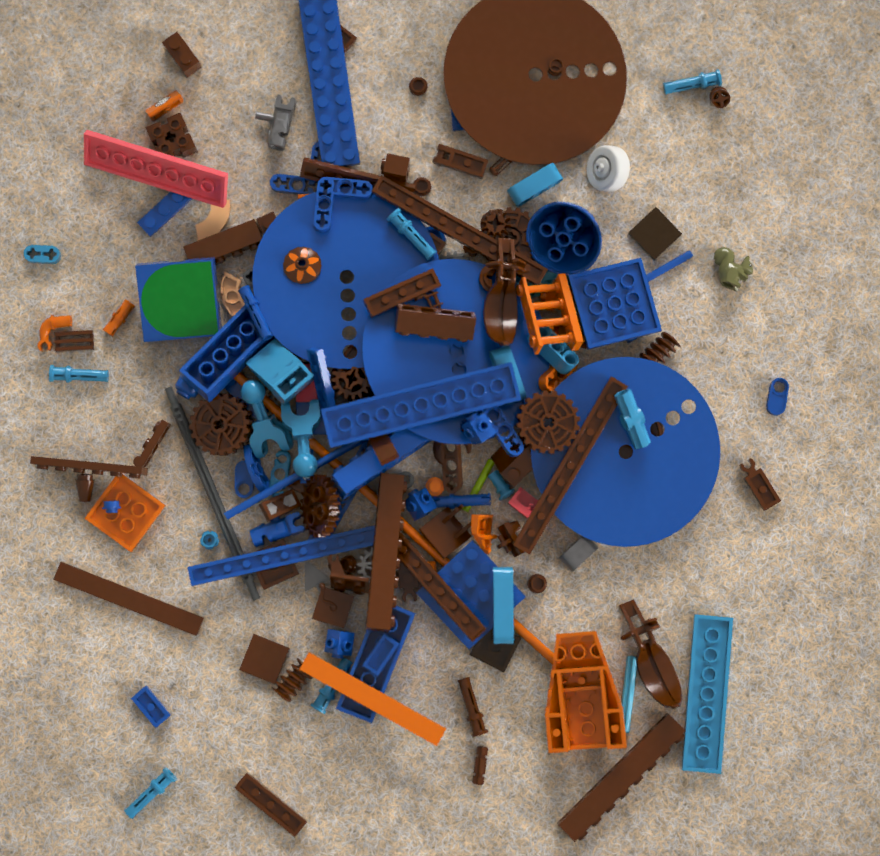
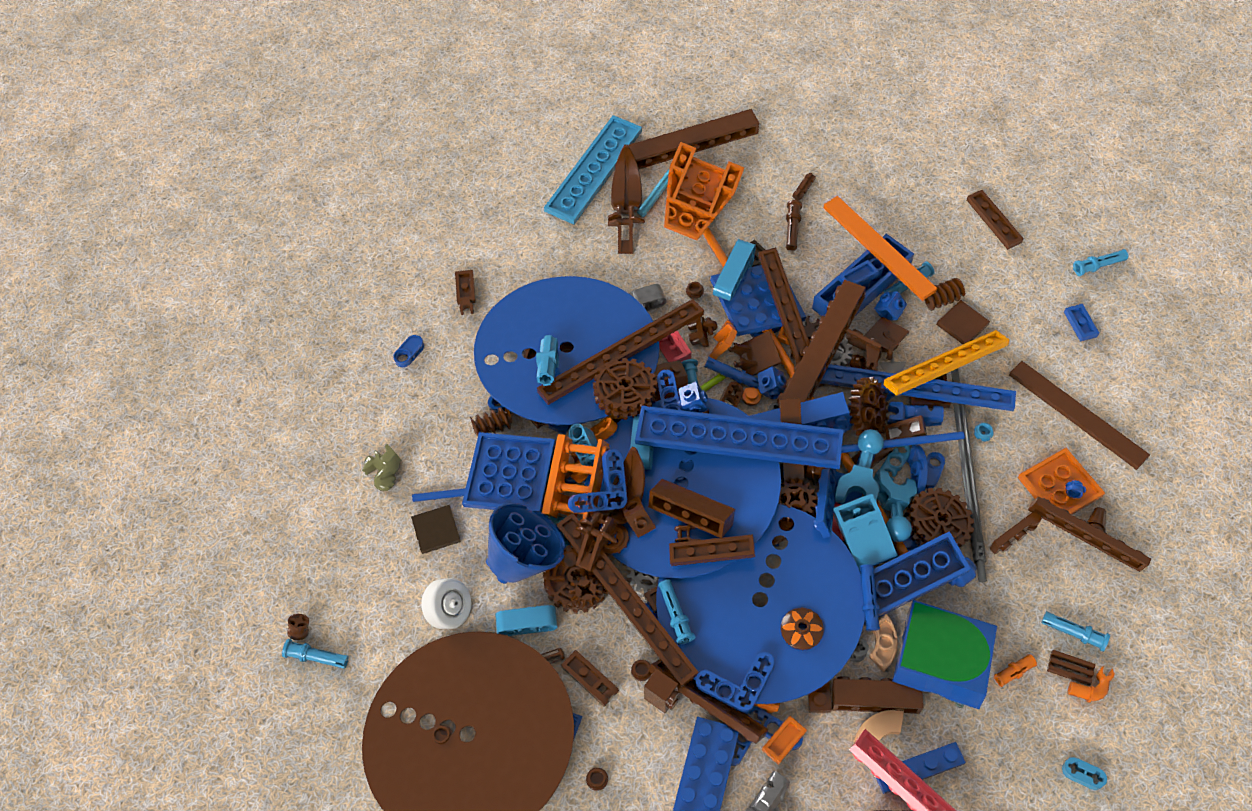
camera: 155 degrees left, 25 degrees down
(264, 592) = (945, 362): none -> light orange plate
(284, 176) = (784, 740): none -> orange tile
(478, 297) = (638, 517): none -> reddish brown bracket
(511, 308) = (611, 490): none -> blue beam

